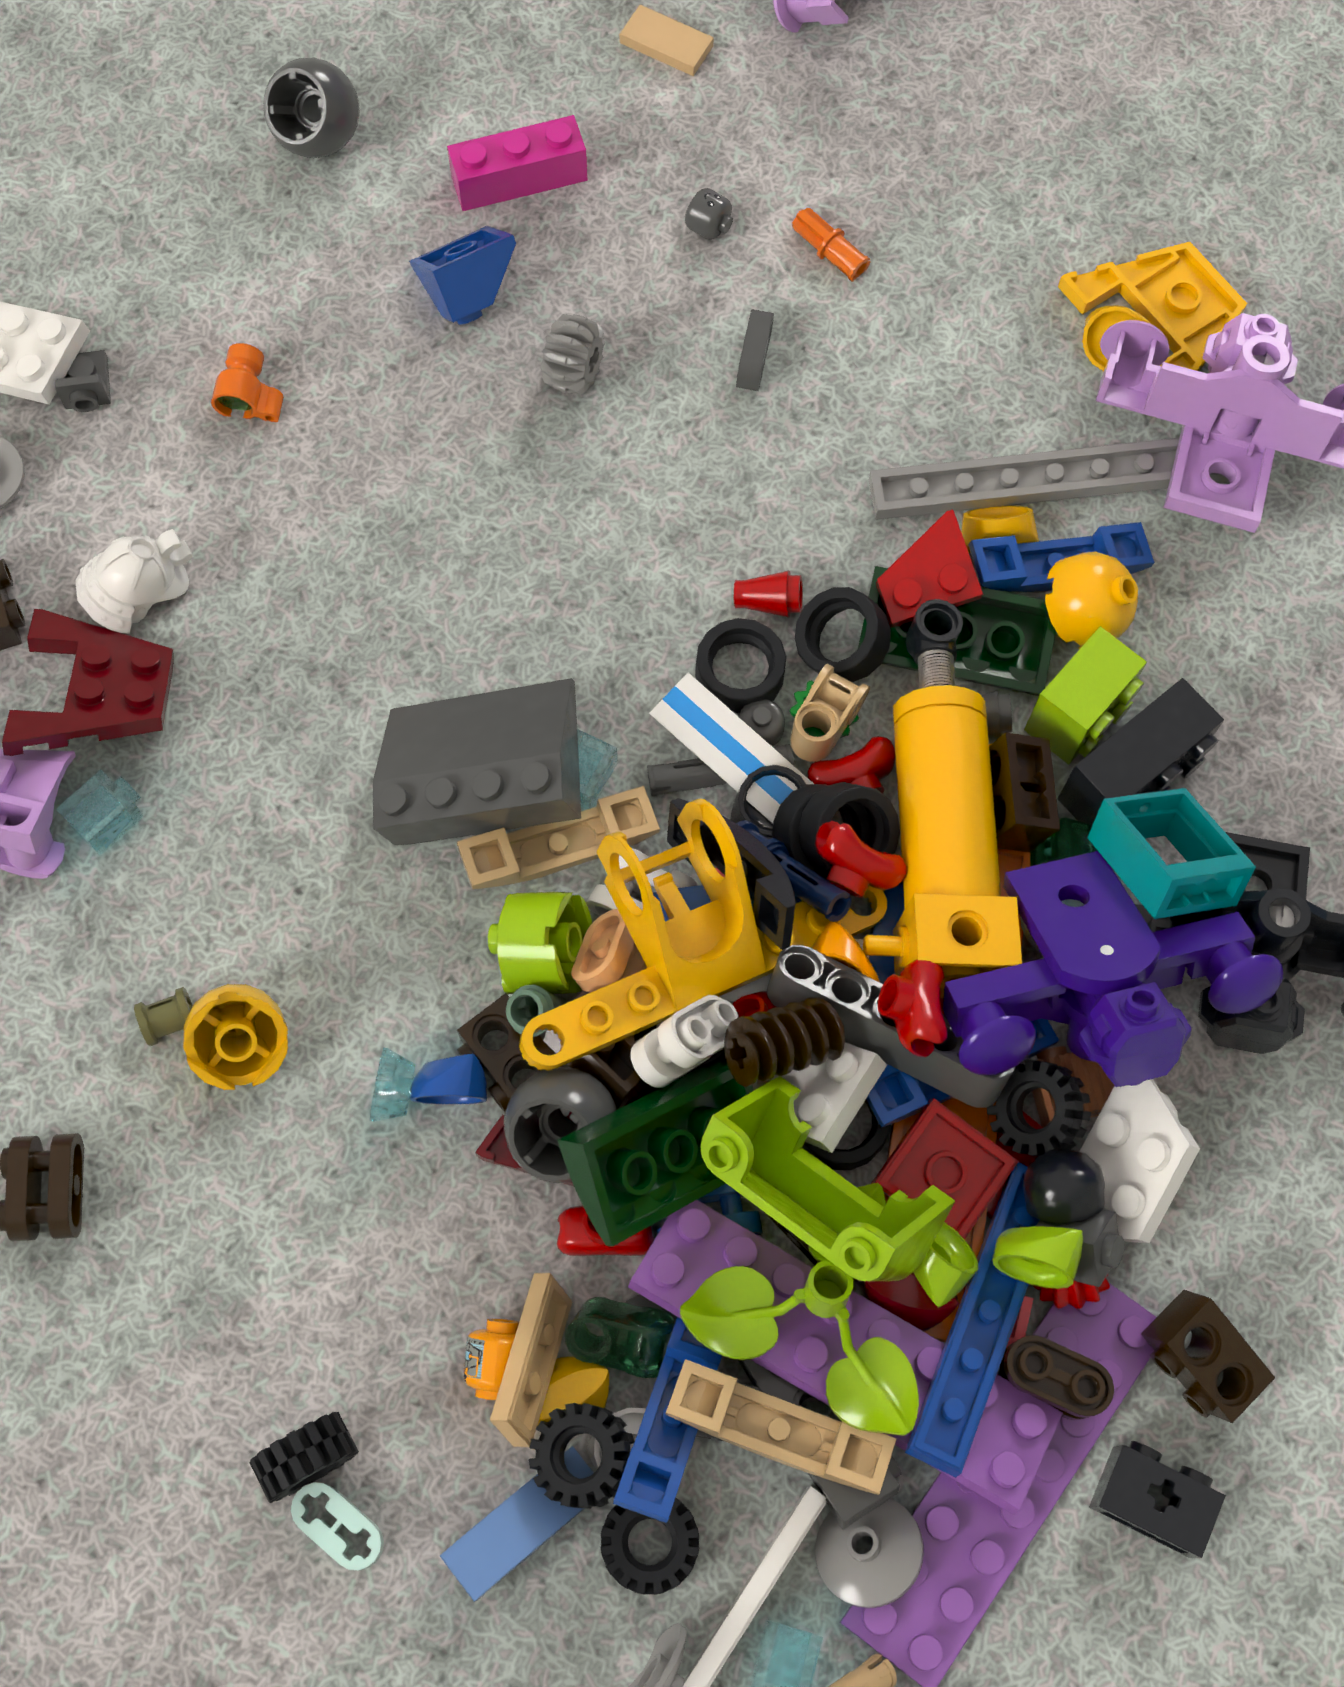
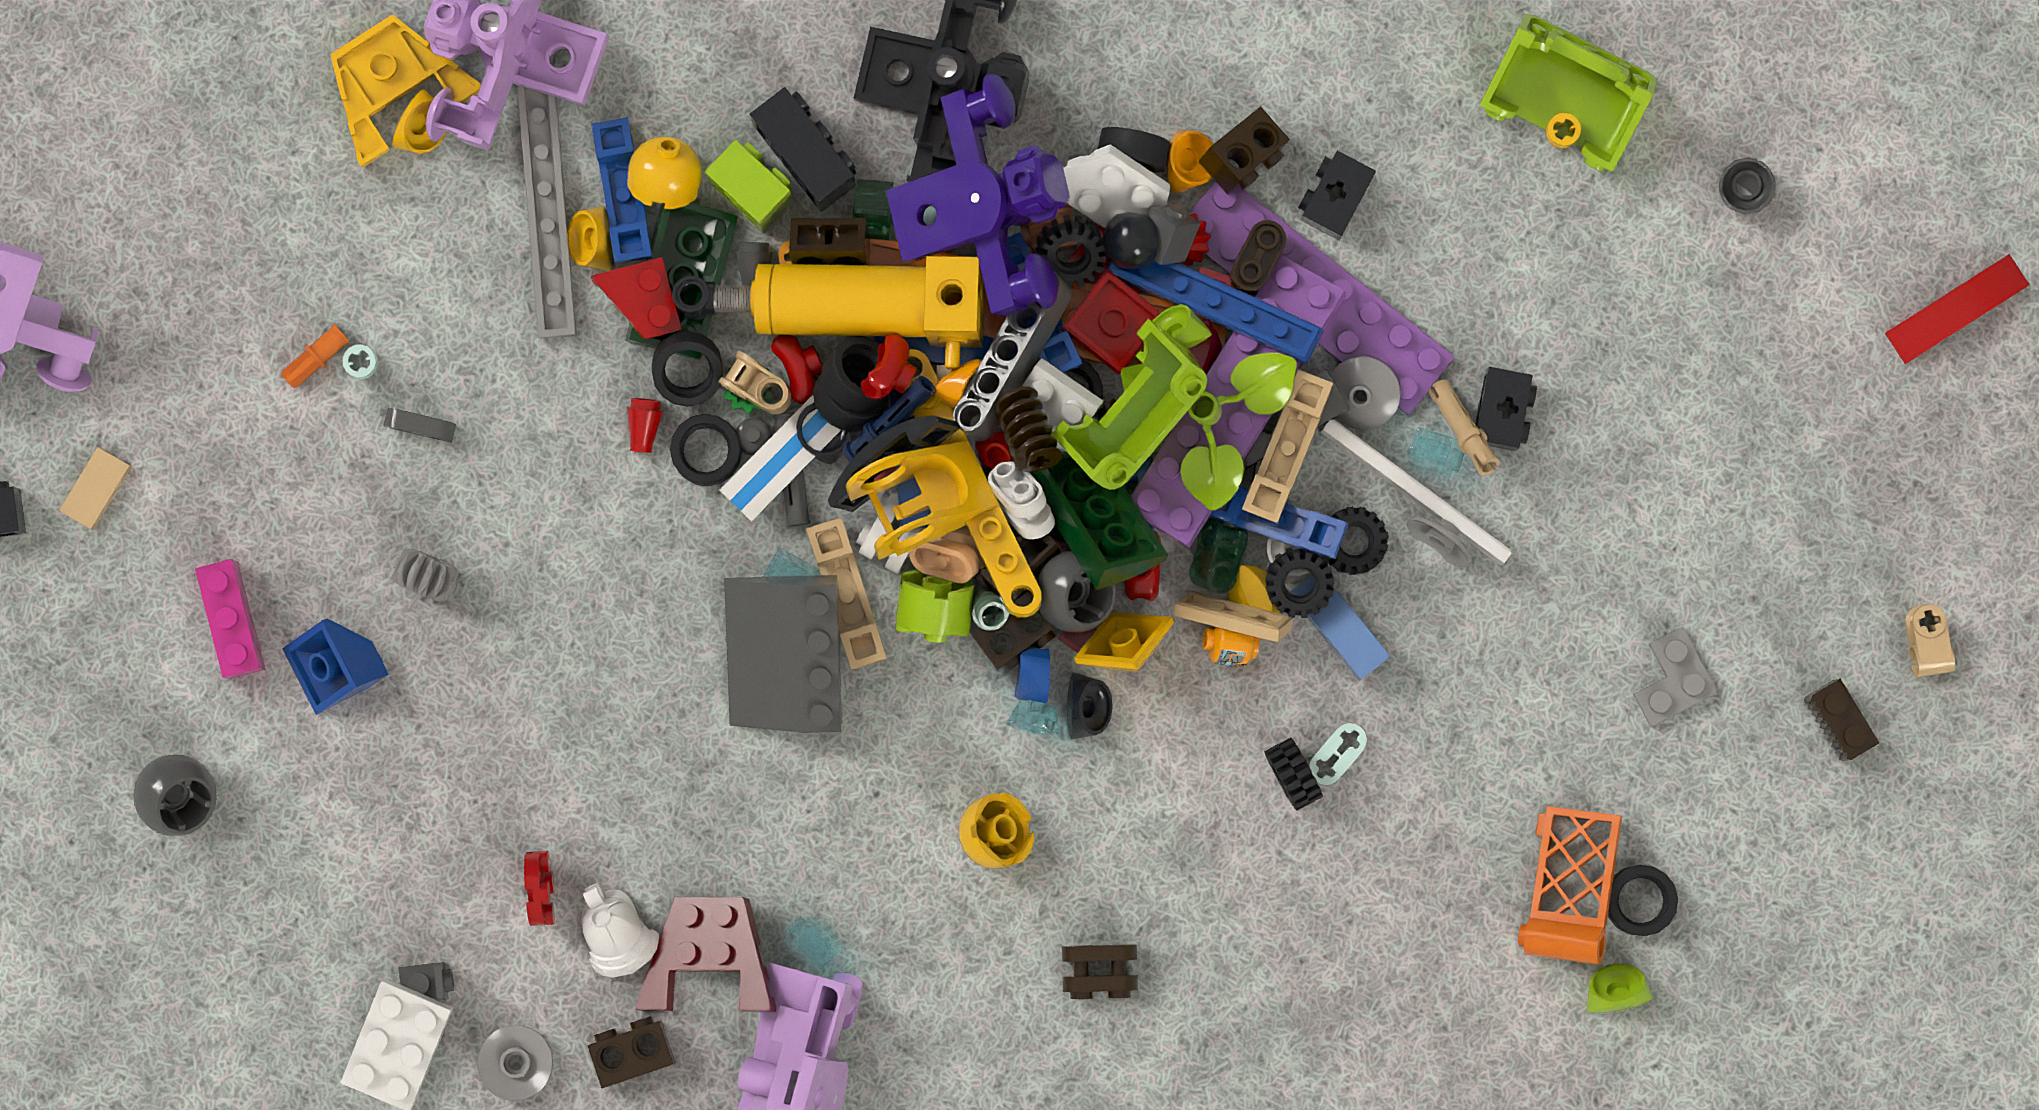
camera: 90 degrees left, 15 degrees up
(163, 1016) = (975, 887): olive bush -> none
(187, 483) = (539, 886): none -> red plate
(242, 390) = (440, 851): orange piece -> none
(409, 1161) = (1087, 706): none -> black piece
(494, 1203) = (1124, 641): none -> yellow slope
(709, 214) = (285, 457): dark grey piece -> none
(822, 277) = (357, 350): none -> light aqua bush
(915, 1006) = (1007, 335): red piece -> none
(1039, 1255) = (1179, 263): lime piece -> none
(1180, 1267) = (1182, 160): none -> light orange piece
(1198, 1202) = (1140, 146): none -> black tyre
(1214, 866) = (931, 148): teal window -> none

